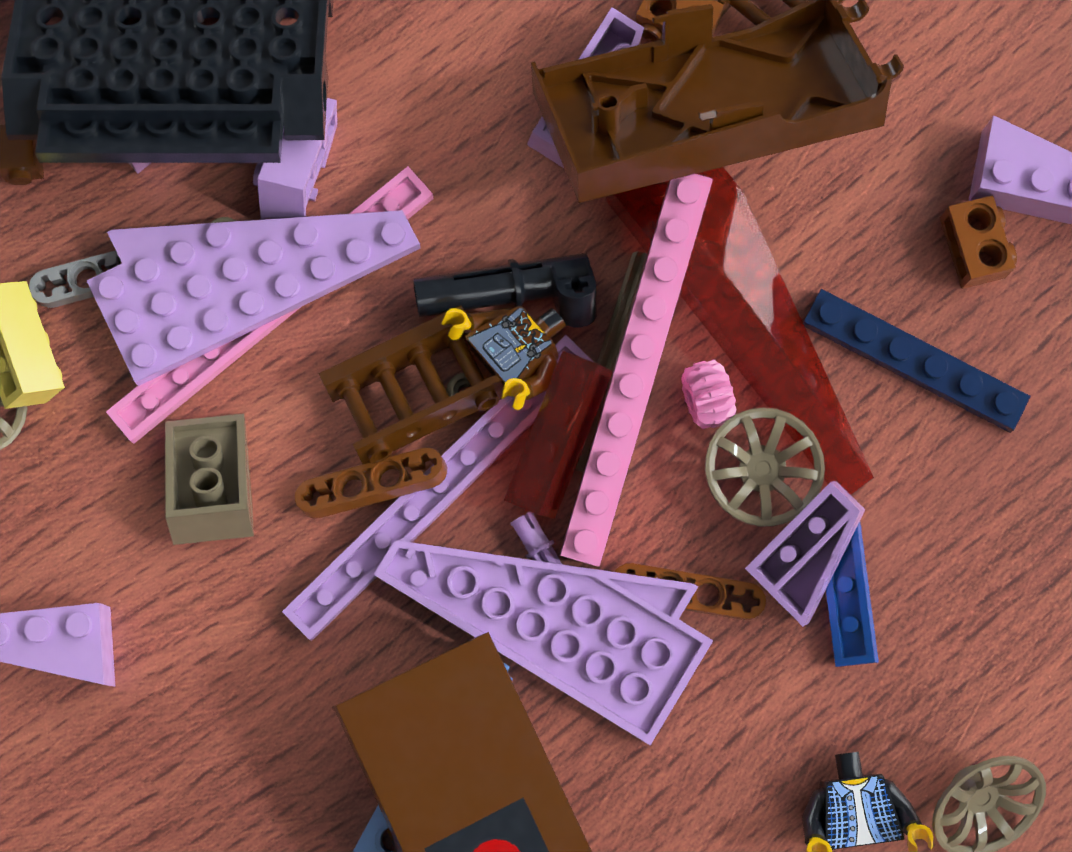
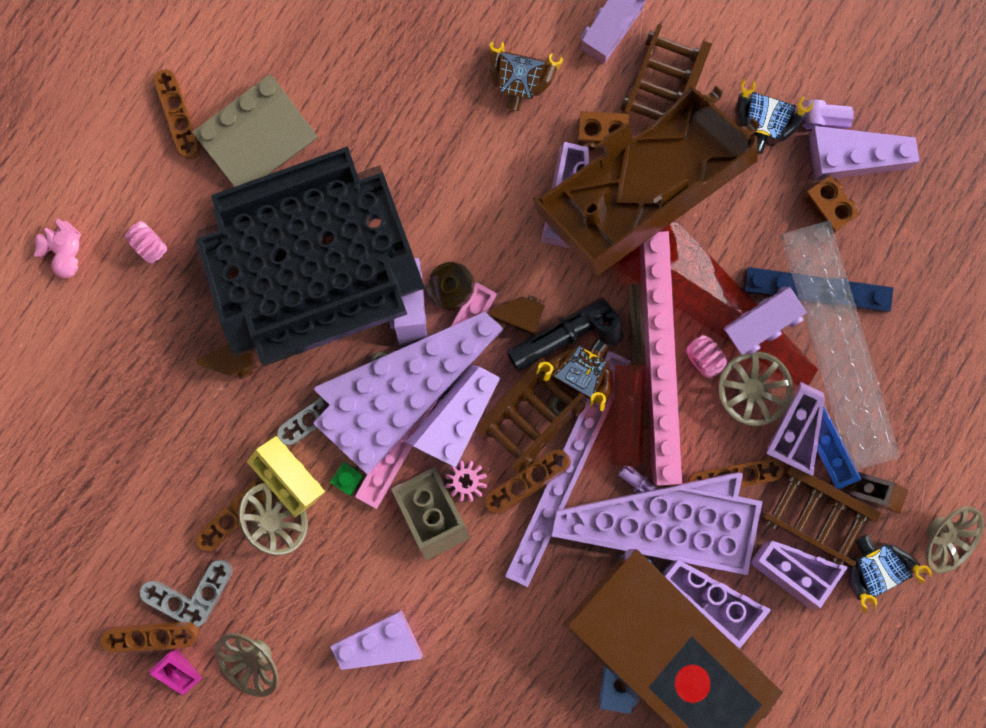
camera: 15 degrees left, 5 degrees up
(106, 384) = (347, 478): none -> green plate
(265, 455) = (458, 485): none -> bright pink gear
(295, 350) = (455, 416): none -> lavender wedge
(368, 159) = (450, 286): none -> dark brown tile
(454, 234) = (520, 313): none -> reddish brown slope
(595, 781) = (727, 609): none -> lavender wedge
(728, 769) = (798, 573): none -> lavender wedge
(813, 368) = (765, 321): none -> lavender wedge
(833, 688) = (840, 503): none -> reddish brown fence
(897, 693) = (878, 492): none -> reddish brown slope
(918, 452) = (840, 345): none -> clear plate
(931, 84) = (776, 118): none -> torso
(1007, 101) = (827, 115): none -> lavender piece

